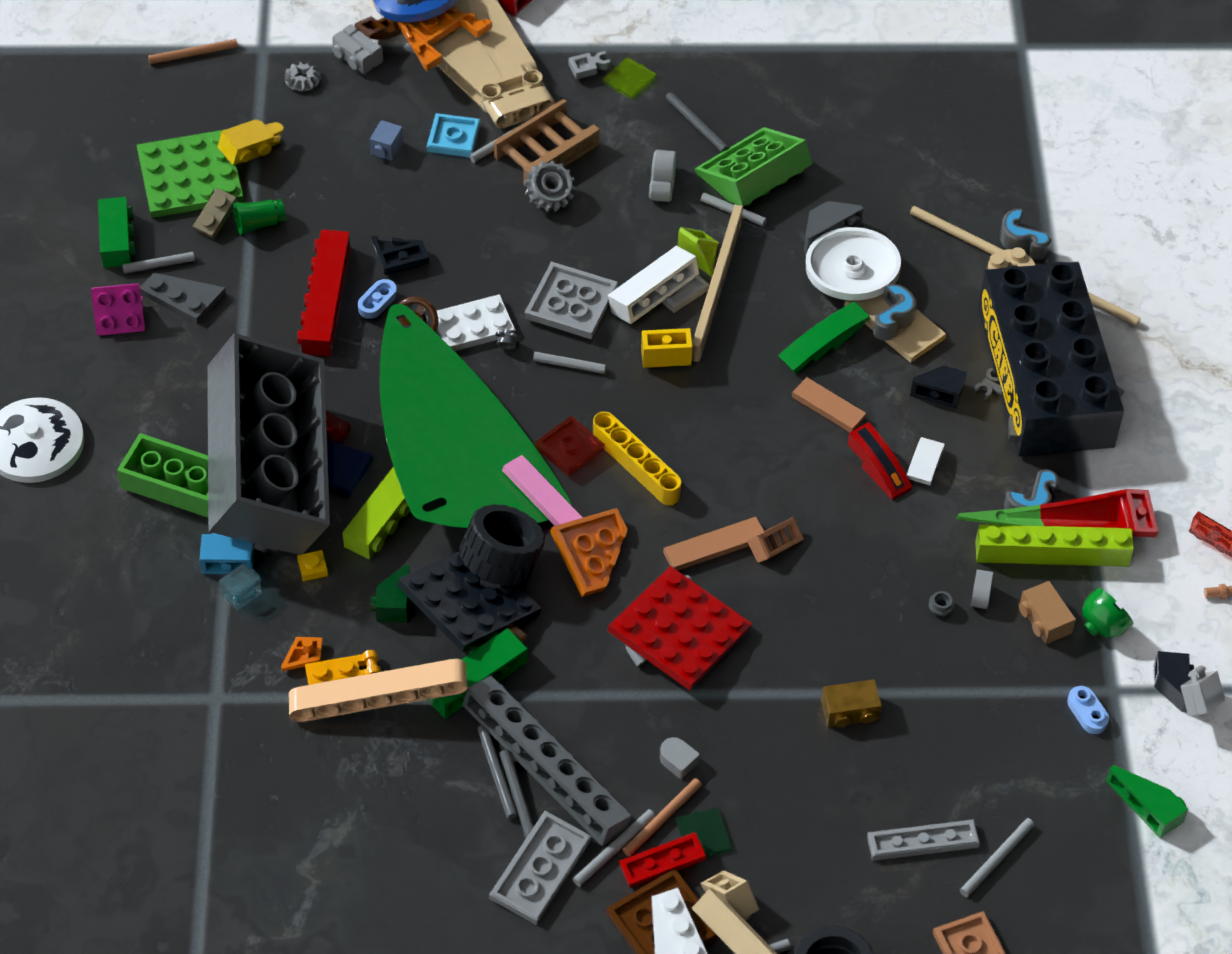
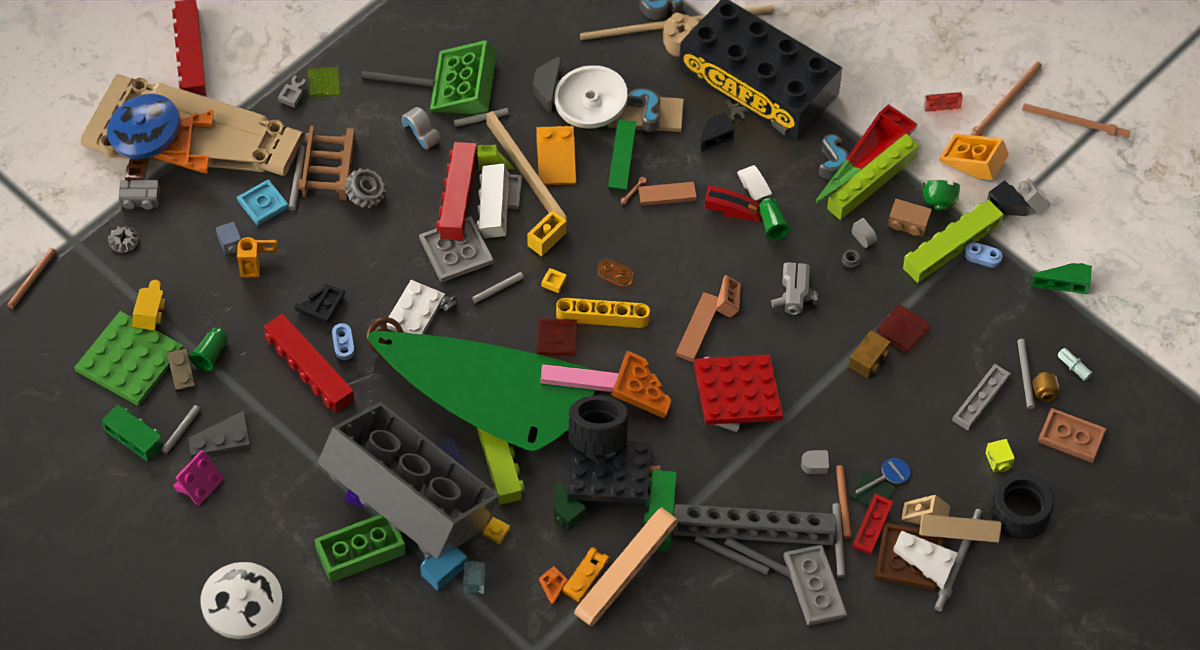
camera: 45 degrees left, 5 degrees up
(380, 163) = (248, 255): none -> light orange piece
(626, 251) = (458, 191): none -> brick
(626, 395) = (554, 280): none -> yellow plate
(691, 430) = (614, 272): none -> clear orange plate
(746, 832) = (894, 470): none -> blue piece
(760, 290) = (556, 155): none -> light orange slope
(820, 376) = (642, 180): none -> nougat hinge
(850, 585) = (797, 292): none -> light grey piece
(871, 909) = (1000, 456): none -> neon yellow brick
(902, 506) = (774, 221): none -> green plant
(918, 709) = (903, 328): none -> clear red plate
(1001, 886) = (1046, 387): none -> pearl gold head
(1060, 891) = (1075, 364): none -> light aqua axle
(1067, 669) = (952, 240): none -> lime brick
(1190, 610) = (975, 155): none -> light orange slope

